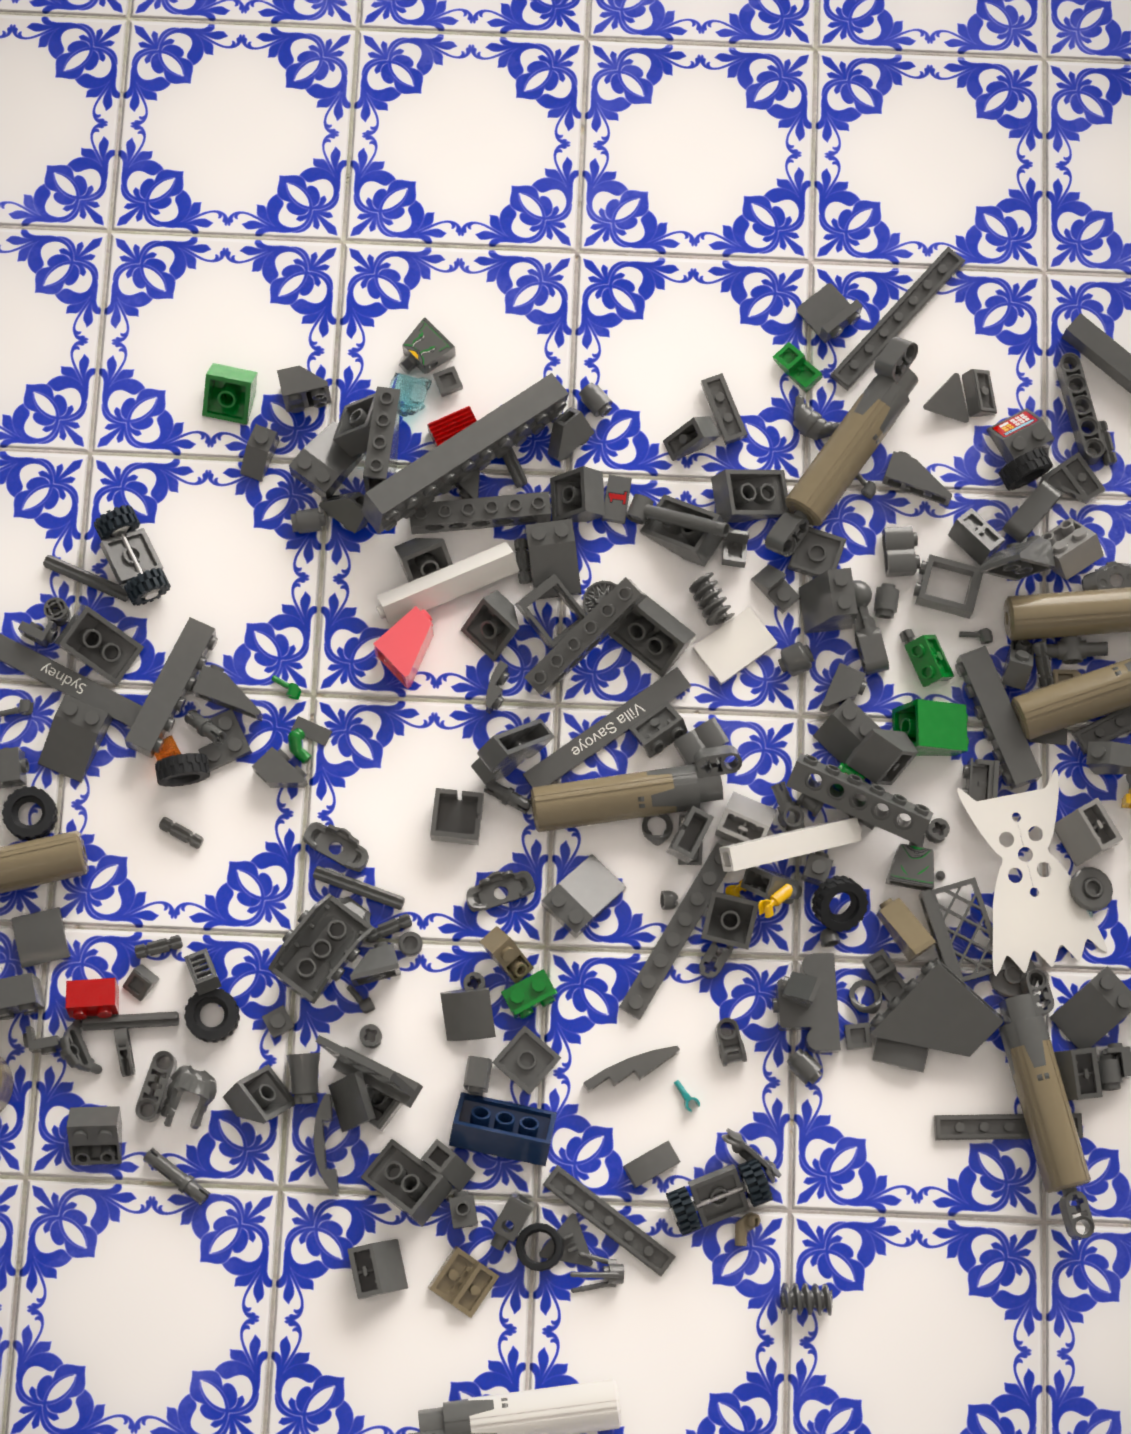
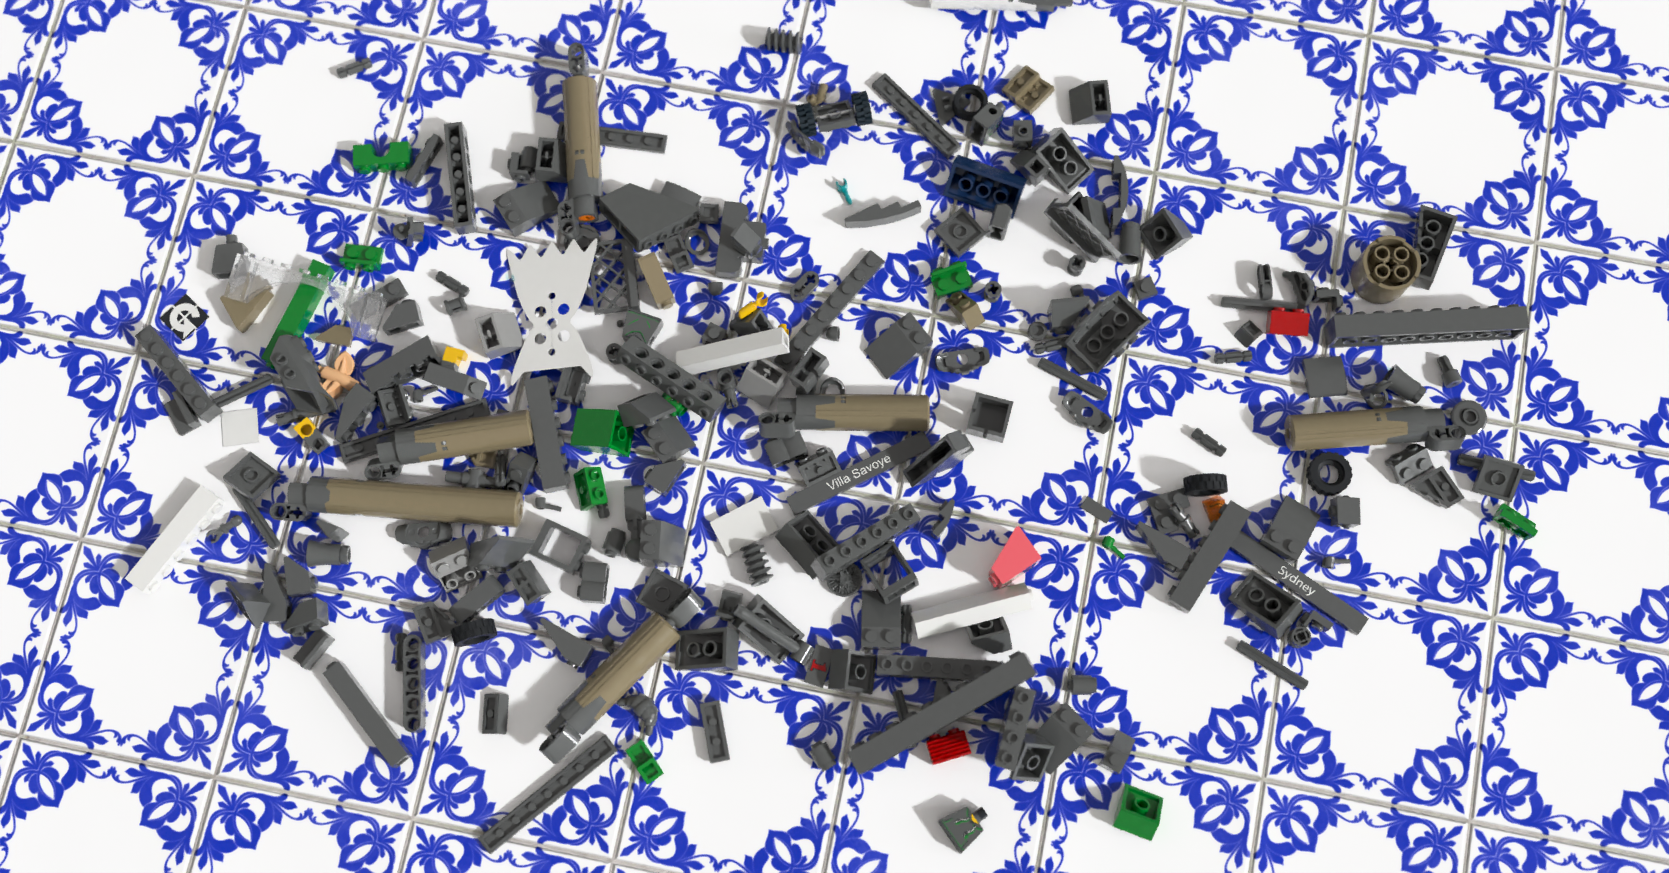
camera: 165 degrees left, 0 degrees up
(95, 1135) = (1291, 225): dark grey slope -> none
(131, 555) = (1234, 673): plate -> none
(151, 1078) = (1243, 242): dark grey beam -> none
(184, 1182) = (1226, 184): dark grey pin -> none
(193, 1081) = (1224, 243): dark grey piece -> none
(207, 983) = (1193, 326): dark grey slope -> none
(216, 1033) = (1189, 312): black tyre -> none
(278, 772) = (1127, 476): dark grey slope -> none
(295, 745) = (1111, 497): green arm -> none
(302, 389) = (1078, 802): dark grey slope -> none
(346, 509) = (1048, 688): dark grey slope -> none
(412, 392) = (987, 783): clear light blue piece -> none
(448, 381) = (947, 794): dark grey plate -> none
(467, 1014) = (1000, 268): dark grey slope -> none
(492, 624) = (938, 571): dark grey slope -> none
(508, 796) = (941, 427): dark grey pin -> none
(568, 433) = (851, 726): dark grey slope -> none
(612, 1273) = (920, 78): dark grey plant -> none
(651, 1164) = (878, 147): dark grey slope -> none
(691, 437) = (747, 708): dark grey slope -> none
(730, 920) = (790, 306): dark grey slope -> none
(730, 1044) = (805, 219): dark grey piece -> none
(775, 588) = (702, 569): dark grey slope -> none
(796, 659) = (697, 505): dark grey head -> none
(805, 1066) = (753, 197): dark grey brick -> none
(829, 312) = (606, 806): dark grey bracket -> none
(852, 915) = (707, 314): black tyre -> none
(949, 400) = (522, 708): dark grey piece -> none
(1020, 435) = (470, 667): dark grey slope -> none
(1091, 889) = (507, 294): dark grey wheel -> none

